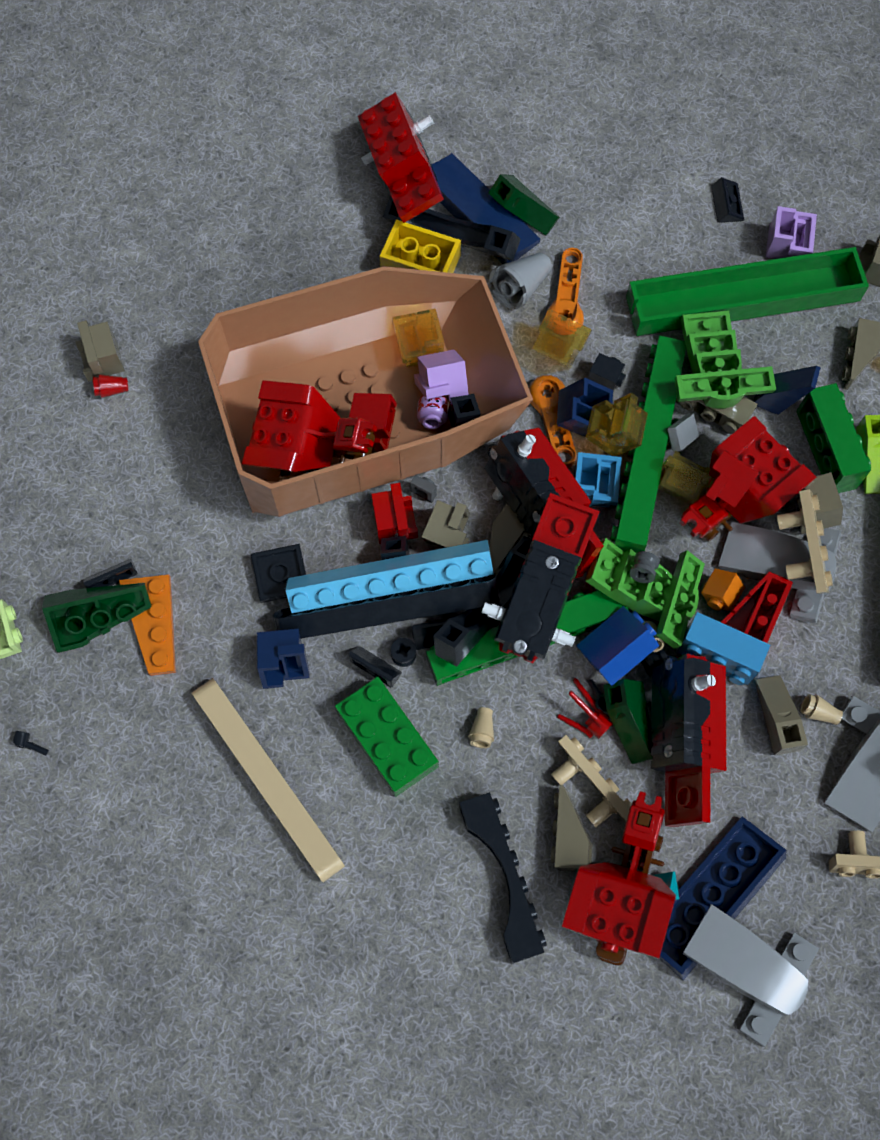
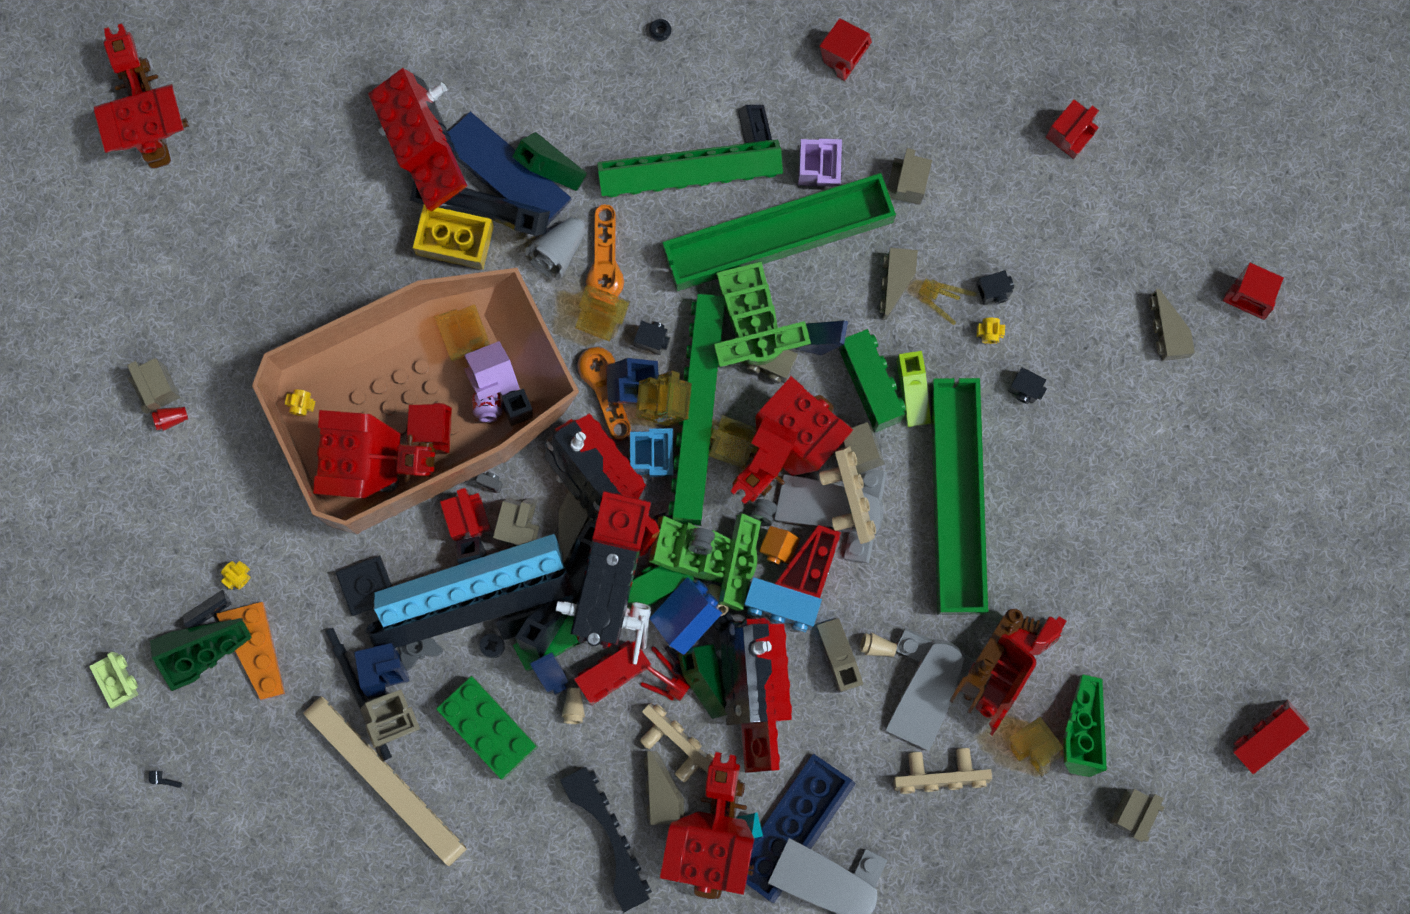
camera: 10 degrees left, 10 degrees up
(141, 110) = (142, 117): none -> red piece
(146, 543) = (235, 575): none -> yellow gear
(240, 638) = (339, 651): none -> black bar
(242, 385) = (300, 402): none -> yellow gear
(282, 708) = (388, 718): none -> dark tan plate
(333, 645) = (426, 647): none -> dark grey animal
(374, 666) = (468, 661): black slope -> none
(463, 684) = (550, 673): none -> dark blue slope
(529, 696) = (611, 672): none -> red wedge
(568, 655) = (641, 612): none -> white plant
(646, 103) = (660, 23): none -> black plate
(662, 224) = (690, 168): none -> green brick
(683, 432) = (729, 393): light grey tile -> none
(709, 553) = (763, 511): none -> dark grey wheel
(824, 138) = (844, 47): none -> red plate

